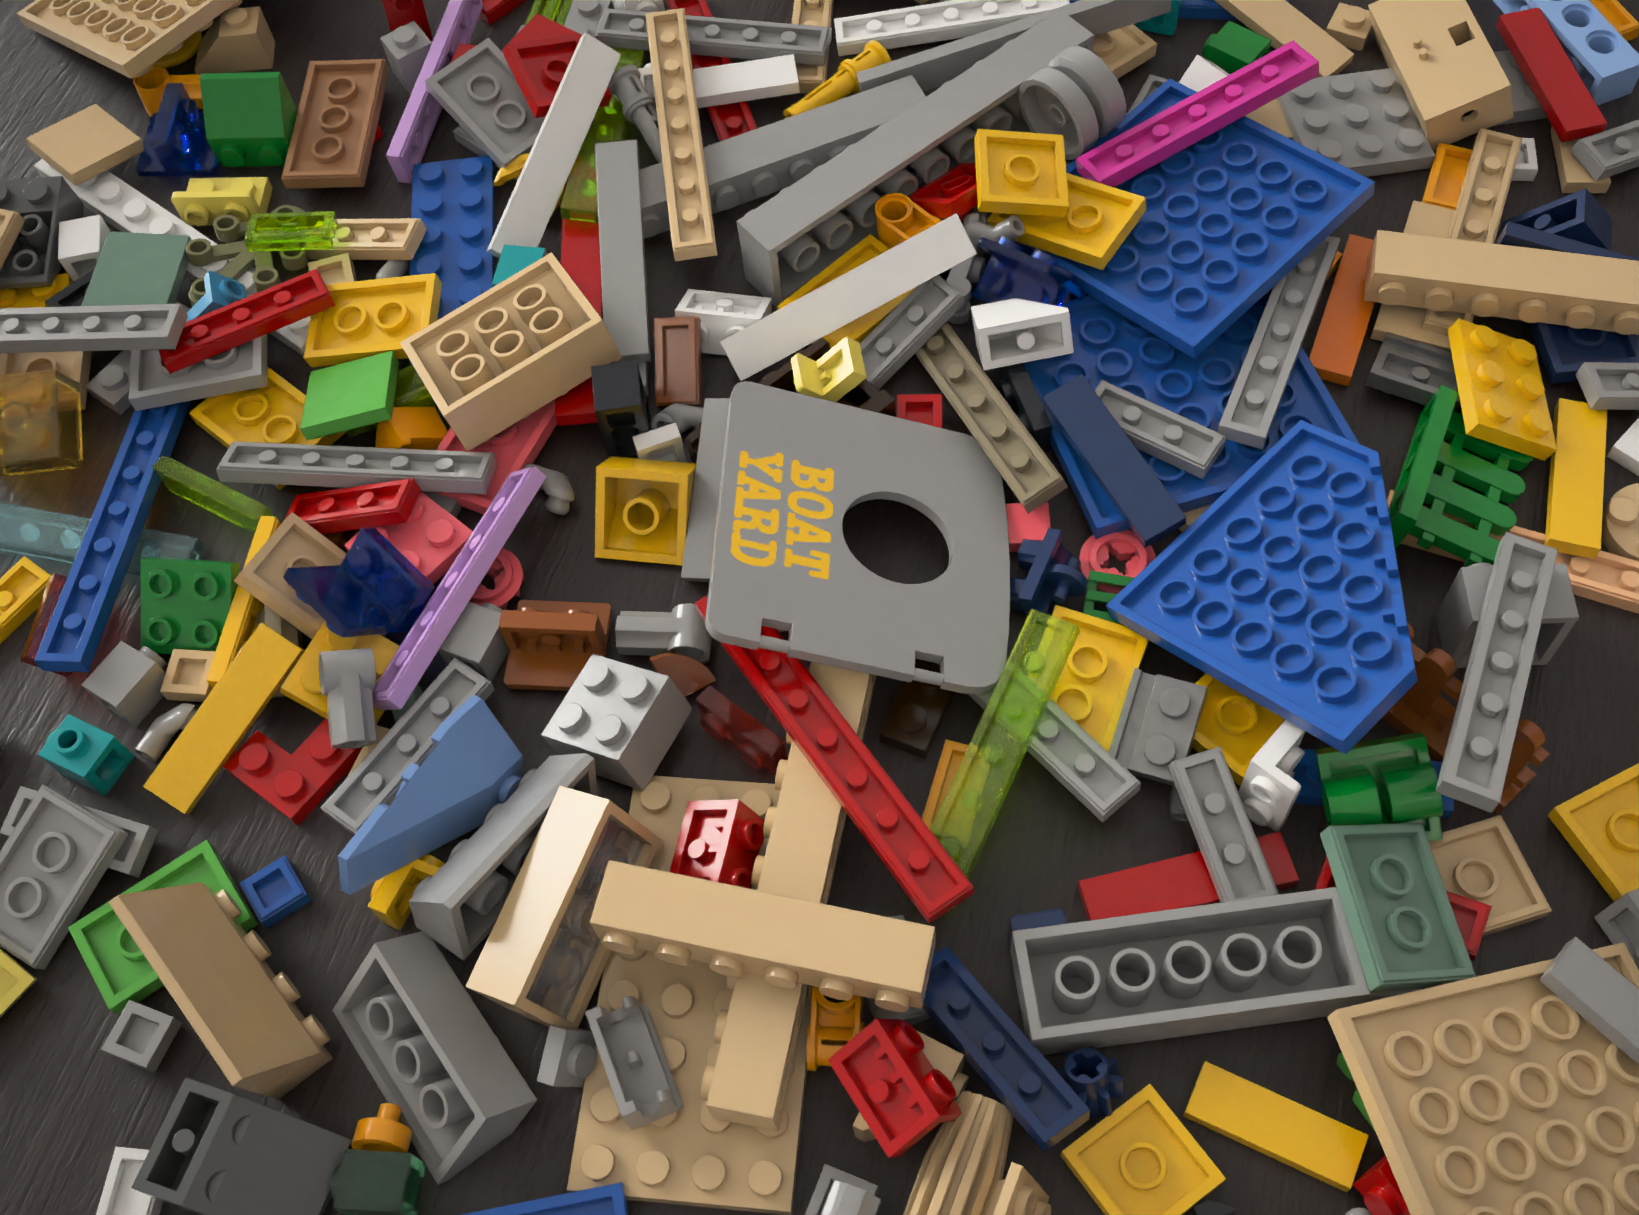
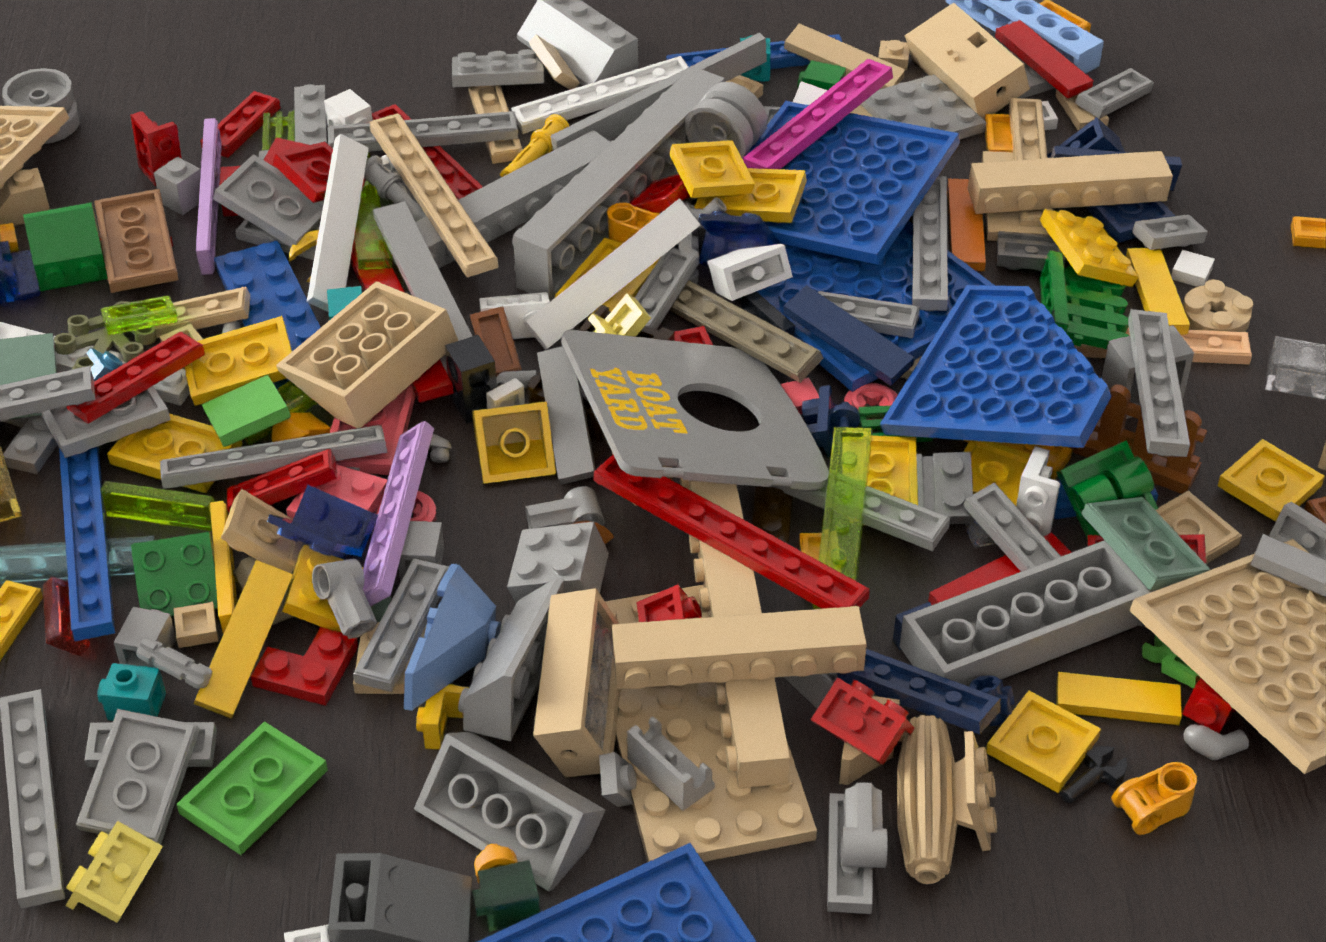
camera: 25 degrees left, 15 degrees down
(128, 736) = (174, 663): none -> light grey axle
(141, 1036) = (270, 859): light grey plate -> none
(163, 730) = (201, 653): light grey arm -> none
(216, 197) = (51, 312): light yellow bracket -> none
(226, 986) = (337, 794): tan slope -> none
(275, 891) = (333, 745): blue tile -> none
(552, 642) = (483, 537): dark orange bracket -> none
(746, 81) = (468, 155): white tile -> none
(754, 741) = (650, 559): clear red plate -> none
(831, 1027) = (799, 710): light orange piece -> none

